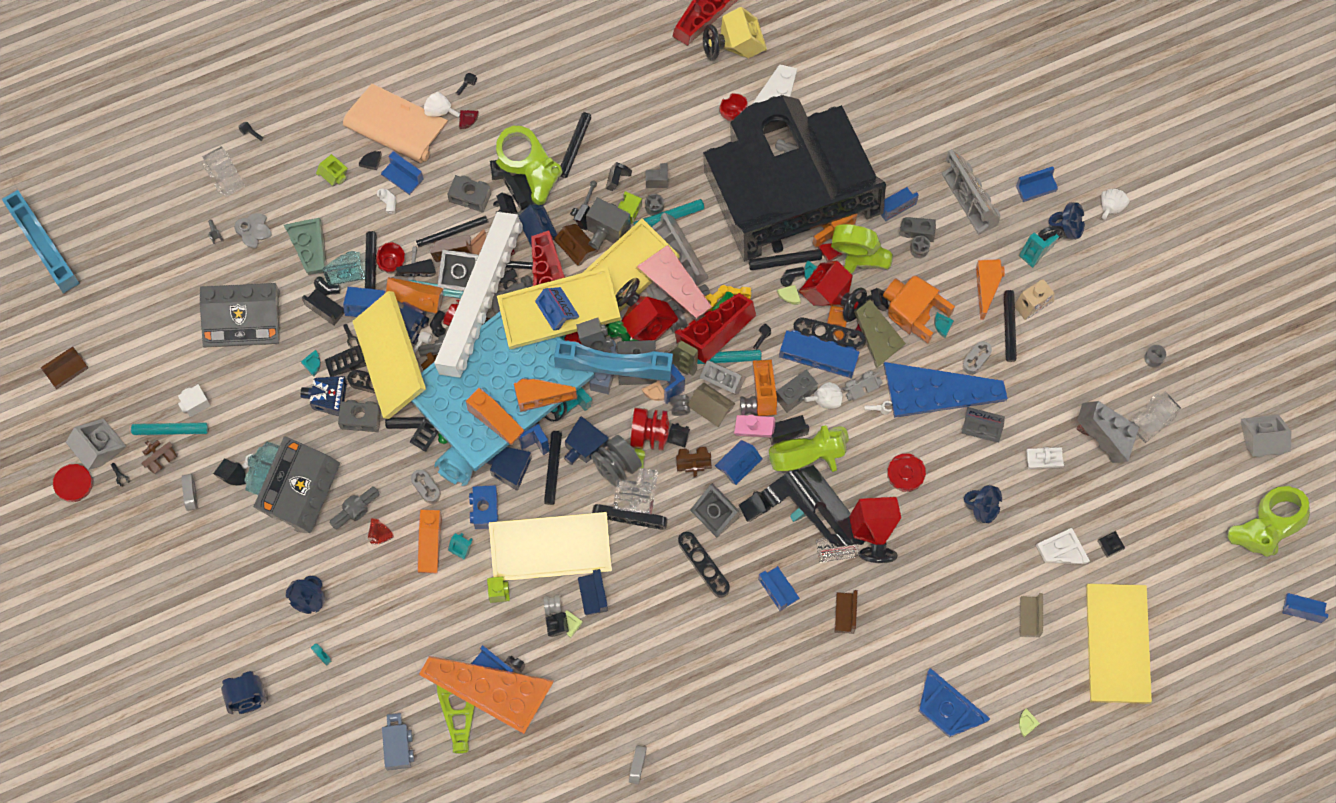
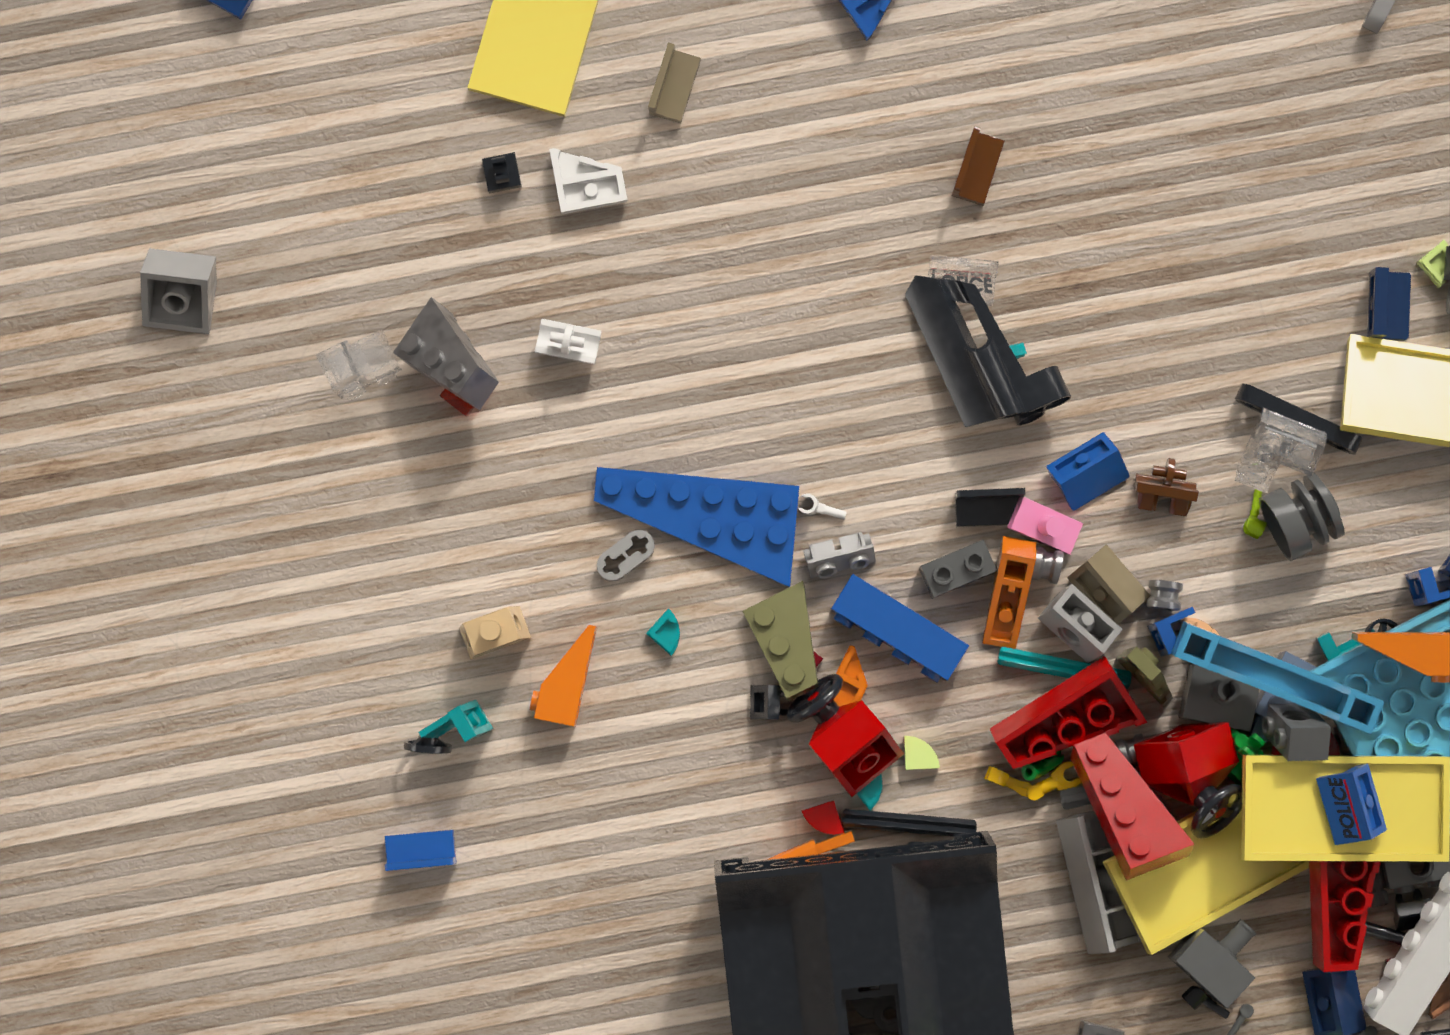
camera: 160 degrees left, 15 degrees up
(552, 471) = (1407, 540): black axle -> none
(574, 243) = (1275, 949): reddish brown panel -> none
(580, 215) = (1254, 998): black tile -> none
(584, 441) = (1345, 570): dark blue torso -> none
(631, 204) = (1164, 989): lime brick -> none
(649, 429) = (1234, 559): red wheel -> none
(652, 201) = (1120, 991): flat silver wheel -> none
(676, 212) = (1086, 962): teal axle -> none
(678, 435) = (1180, 542): black tile -> none
(700, 566) = (1198, 305): black beam -> none
(715, 511) = (1151, 392): dark grey slope -> none
(754, 506) = (1084, 382): black tile -> none
(765, 330) = (979, 696): black hand -> none
(778, 588) = (1078, 236): blue panel -> none
(790, 274) = (909, 791): black arm -> none
(802, 451) = (938, 448): lime animal -> none
(827, 396) = (904, 551): white piece -> none
(829, 334) = (873, 656): black beam -> none
(861, 248) = (778, 793): lime animal -> none
(874, 522) = (891, 287): red piece -> none
(899, 203) = (681, 881): blue panel -> none
(906, 472) = (807, 382): red tile -> none
(912, 303) = (712, 674): orange piece -> none
(915, 227) = (658, 819): dark grey leg -> none
(920, 242) = (664, 785): flat silver wheel -> none
(970, 193) = (545, 860): light grey piece -> none
(983, 424) = (651, 433): dark grey panel -> none
(986, 503) = (694, 283): dark blue tile -> none
(1010, 326) = (550, 599): black axle -> none
(1071, 220) = (382, 760): dark blue tile -> none
(1113, 202) = (294, 785): white piece -> none
(1152, 359) = (322, 483): flat silver wheel -> none
(1265, 532) = (239, 121): lime animal -> none

